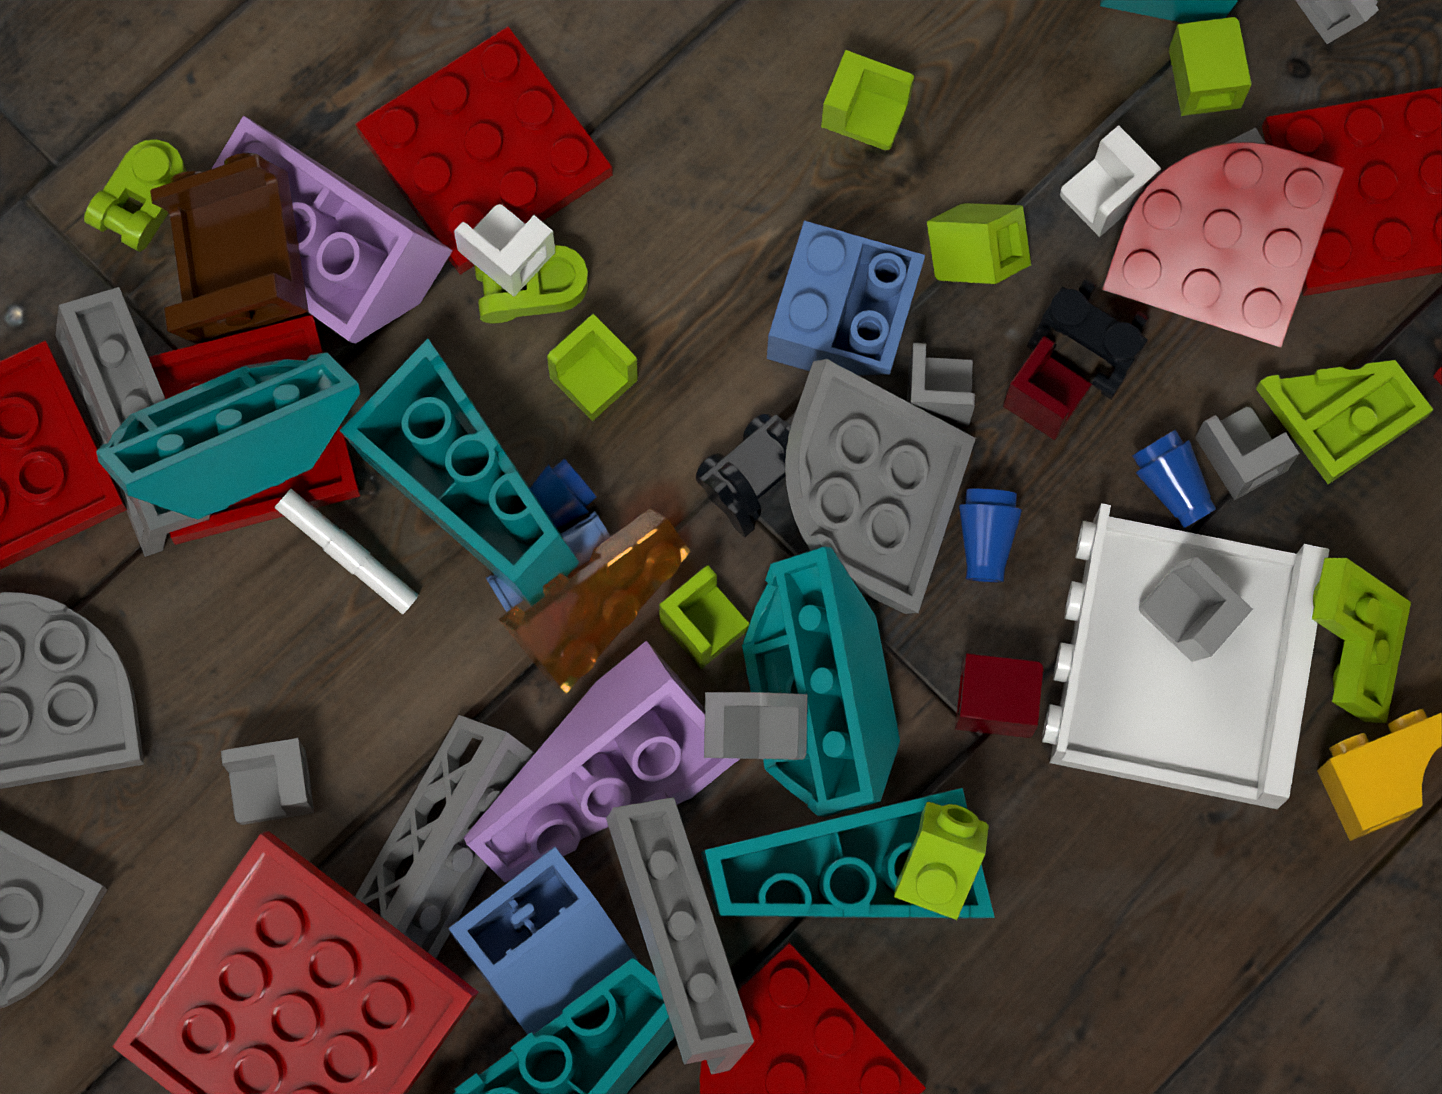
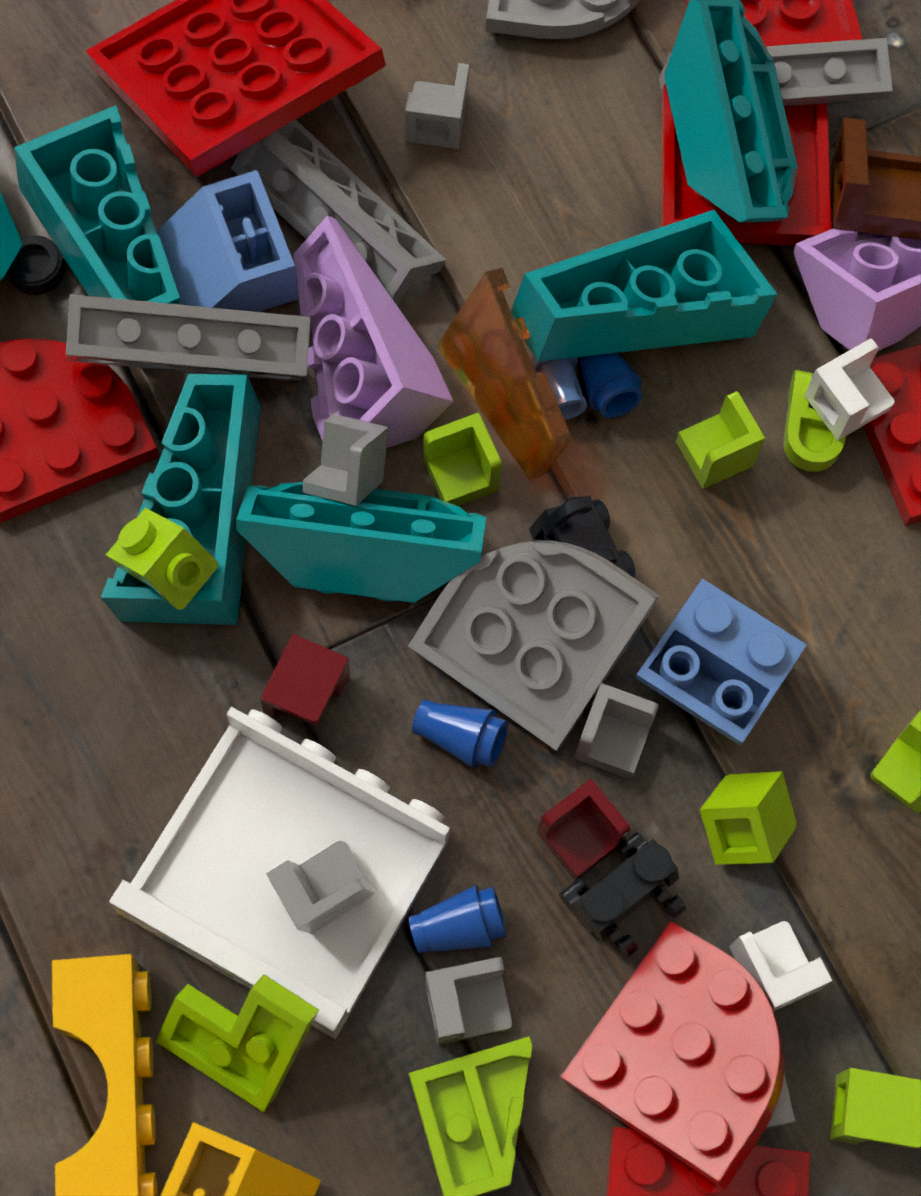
camera: 105 degrees right, 5 degrees down
(346, 551) = (612, 207): white piece -> none

